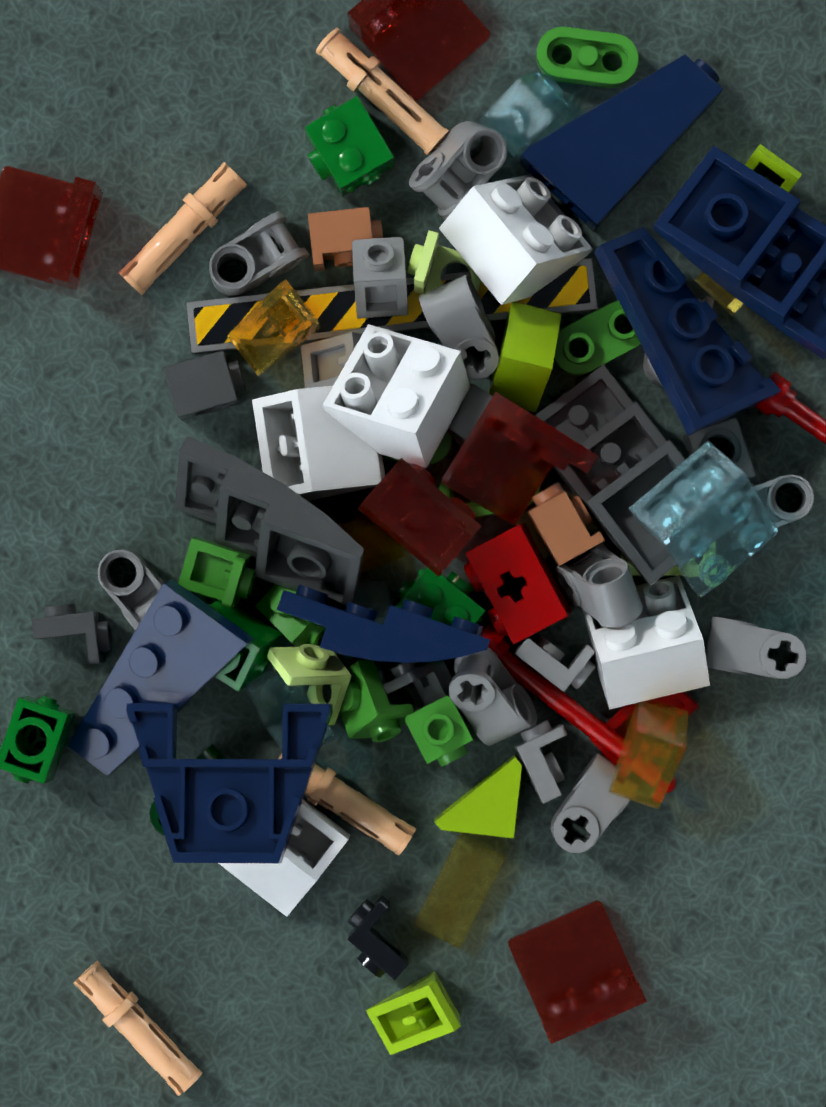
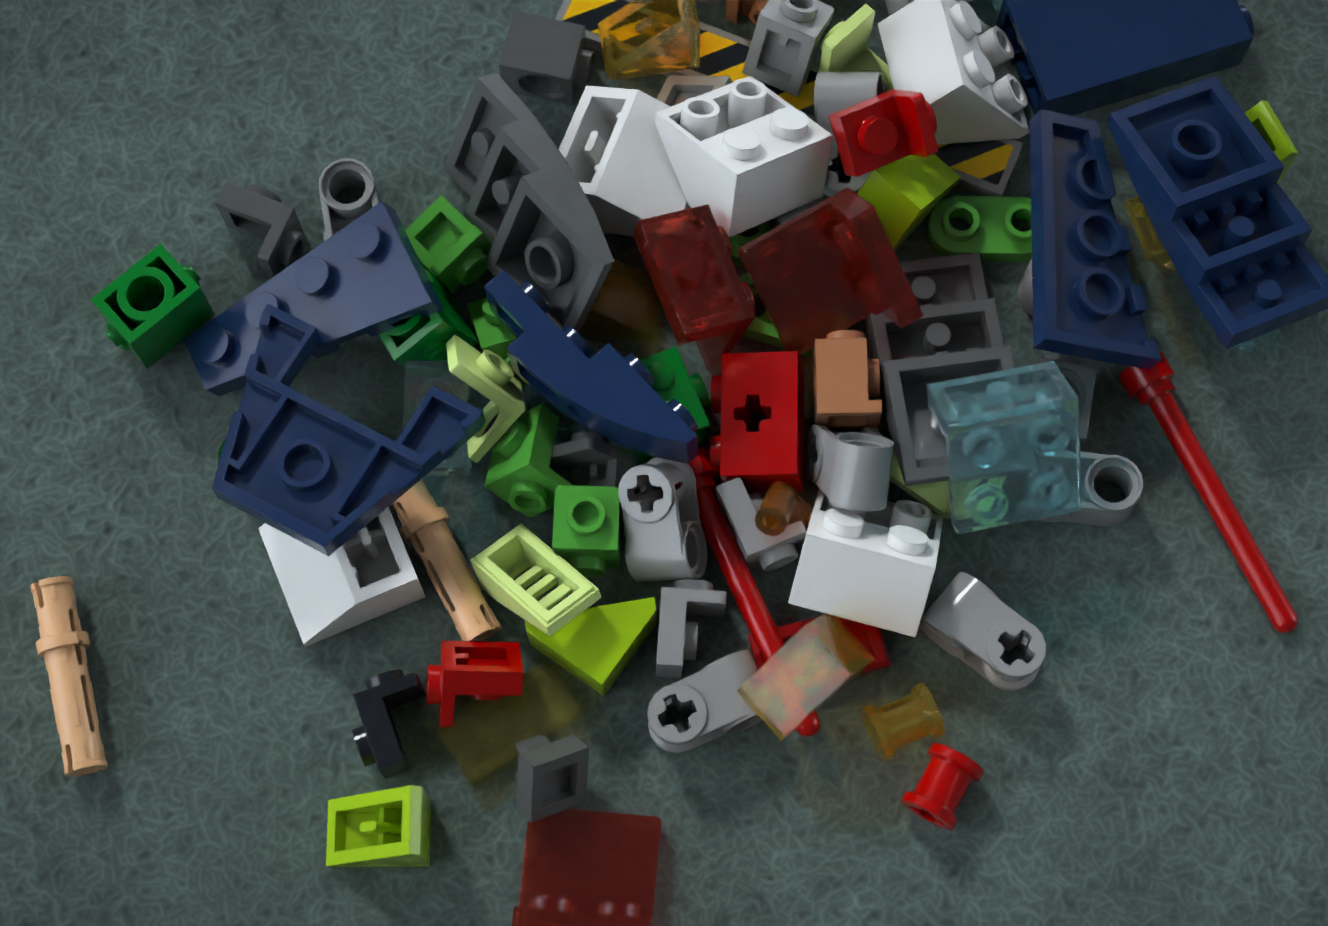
camera: 25 degrees right, 15 degrees down
(395, 779) = (512, 556): none -> yellowish green slope
(418, 875) = (474, 669): none -> red bracket
(494, 326) = (884, 131): none -> red bracket
(510, 916) = (550, 776): none -> dark grey tile
(567, 640) = (780, 508): none -> clear orange arm
(729, 743) = (902, 722): none -> clear yellow bush
(779, 774) = (942, 786): none -> red bush

